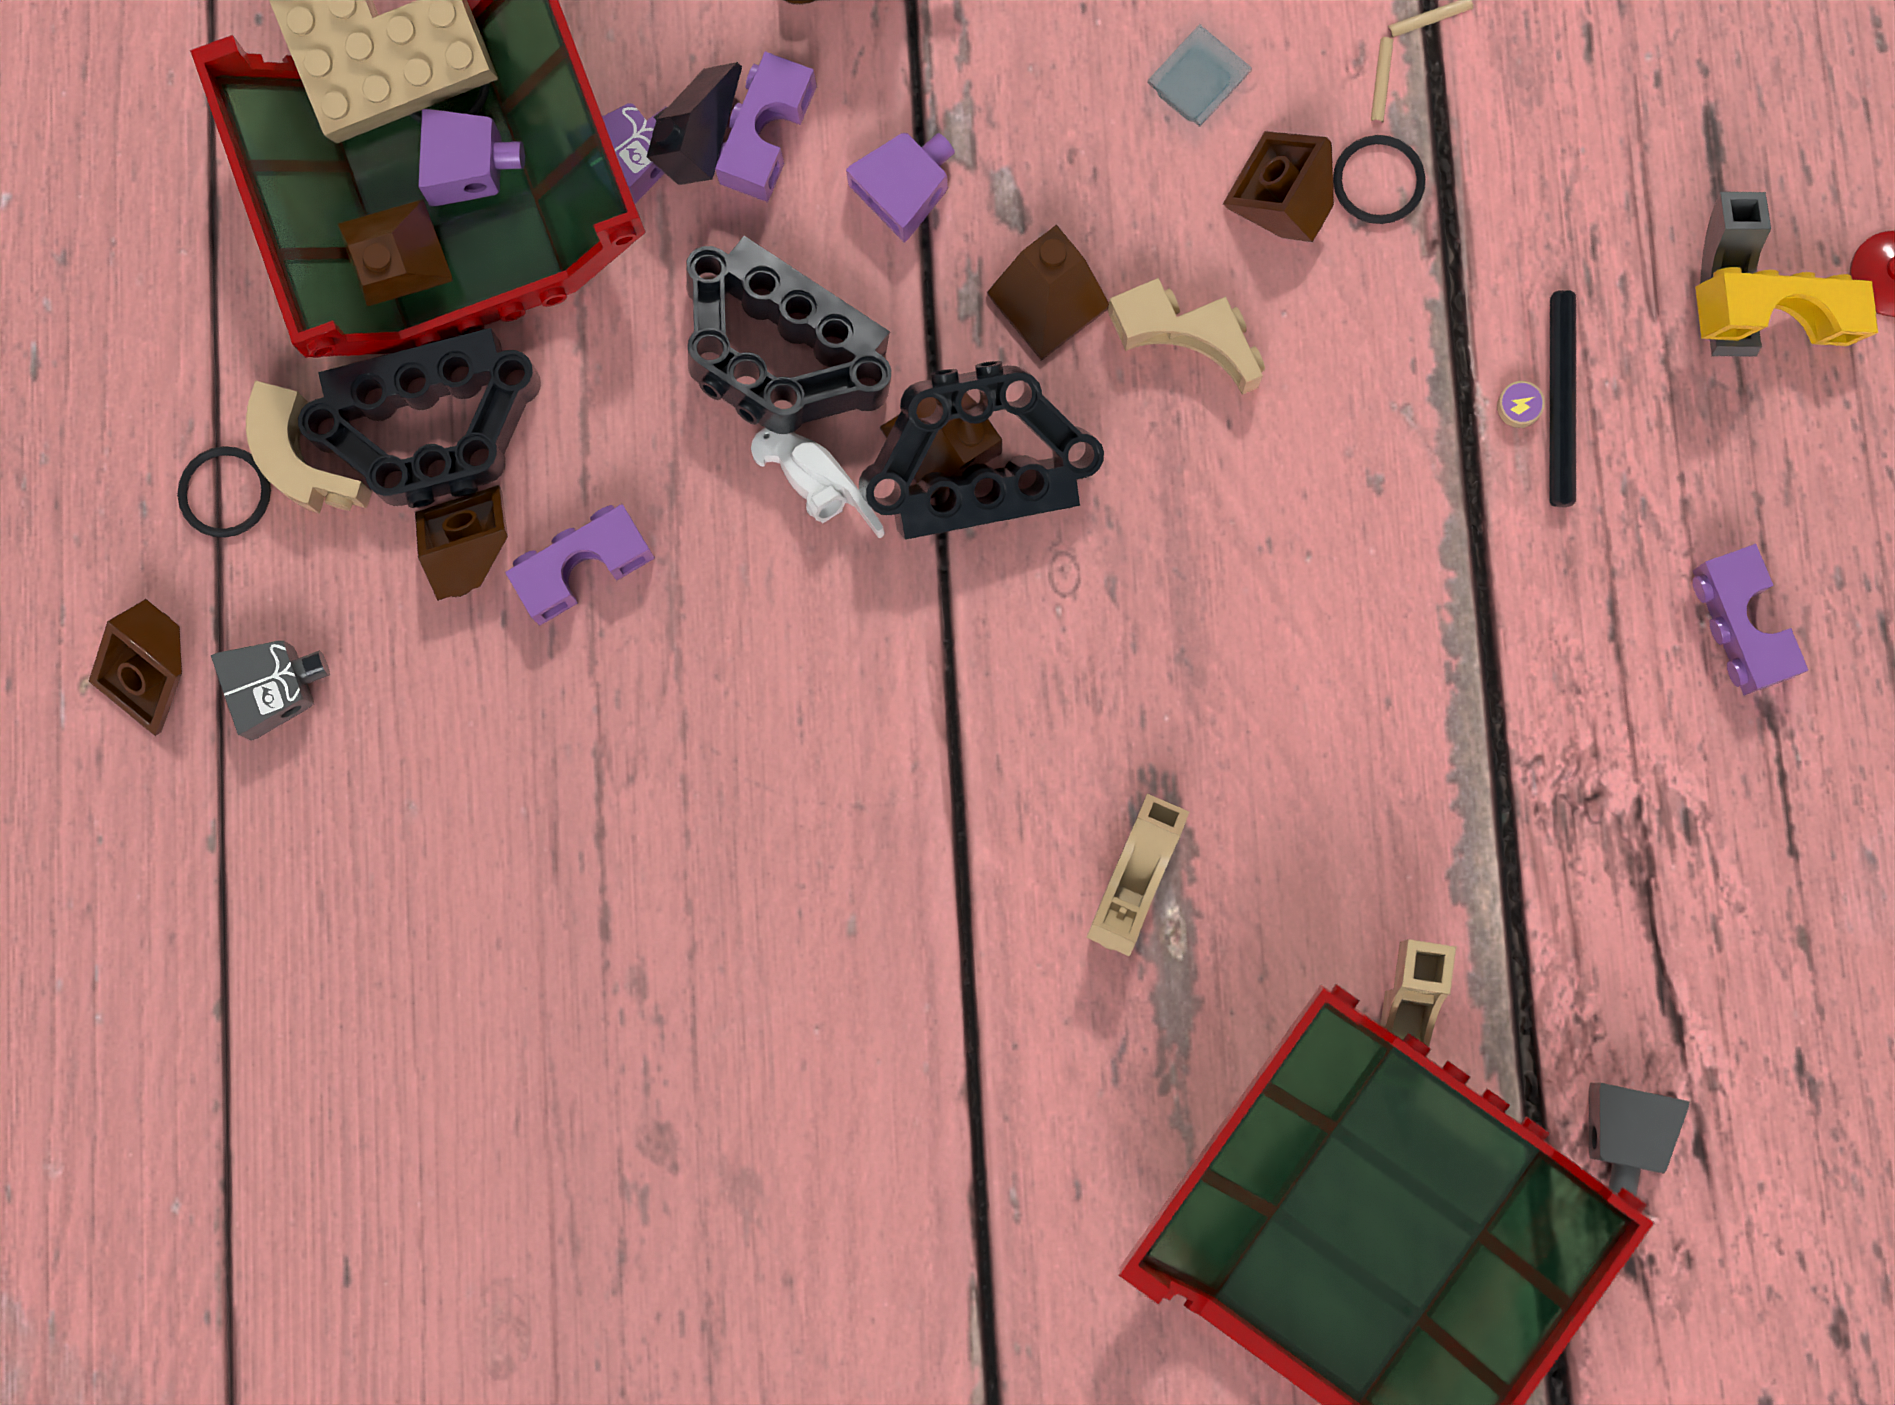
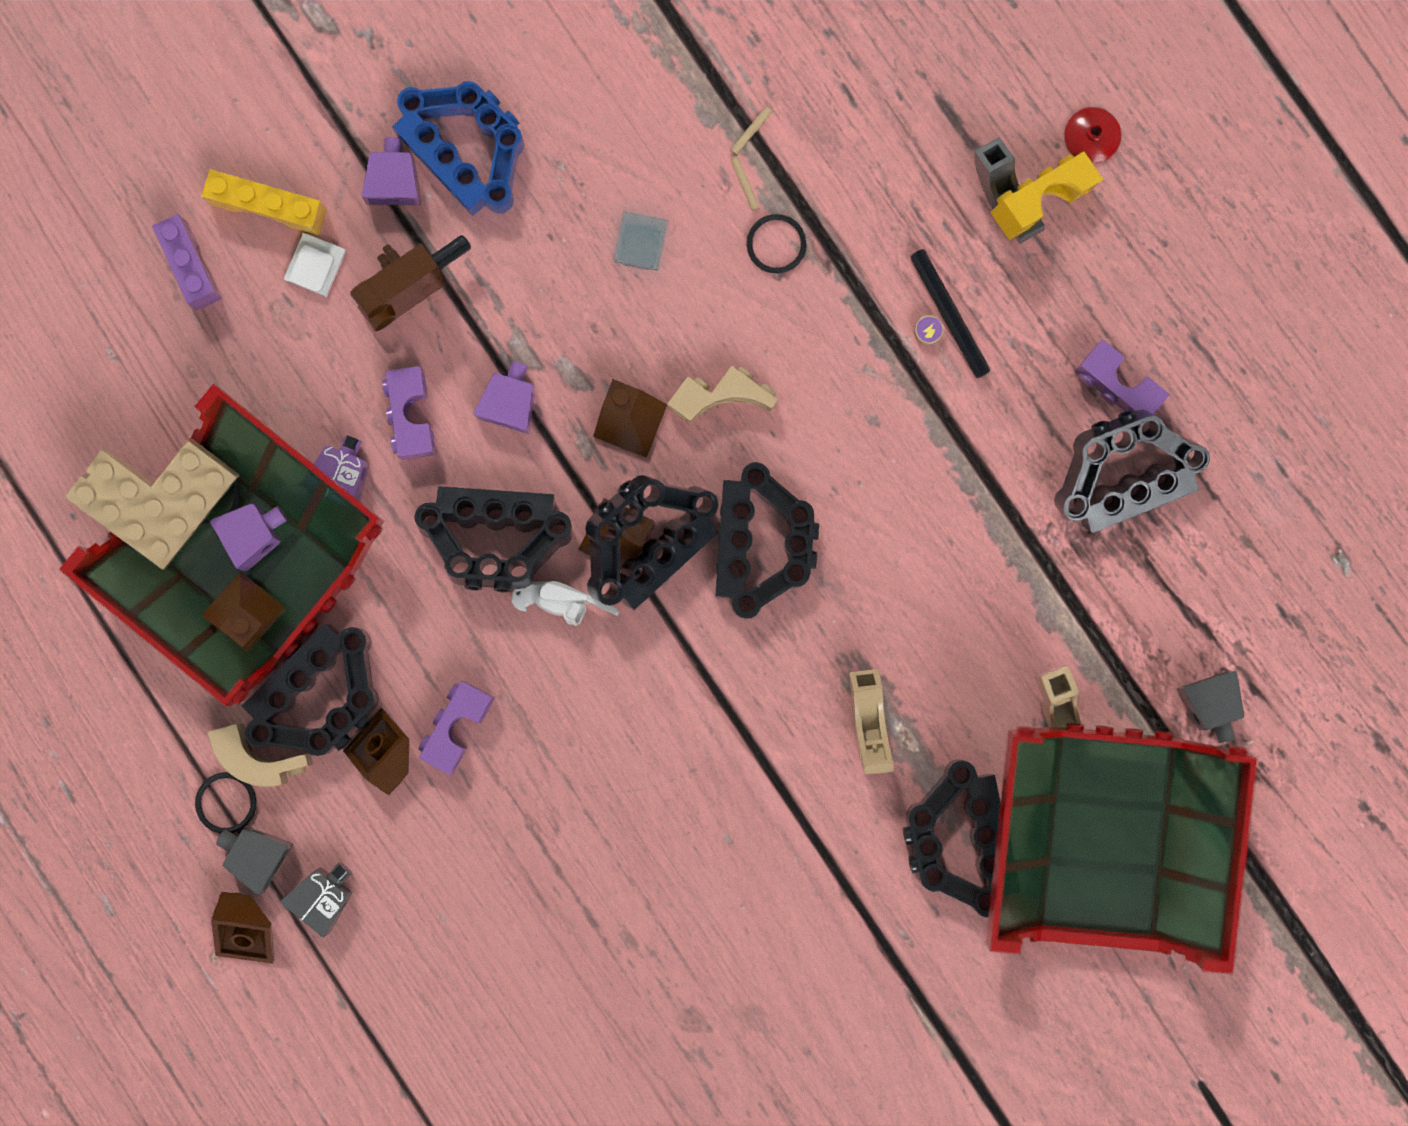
camera: 40 degrees left, 5 degrees up
(215, 580) = (253, 857): none -> dark grey torso
(694, 125) = (370, 436): black slope -> none
(1119, 622) = (784, 503): none -> black brick
(1233, 1053) = (935, 803): none -> black brick
(1286, 185) = (726, 279): reddish brown slope -> none
(1632, 702) = (1086, 467): none -> black brick

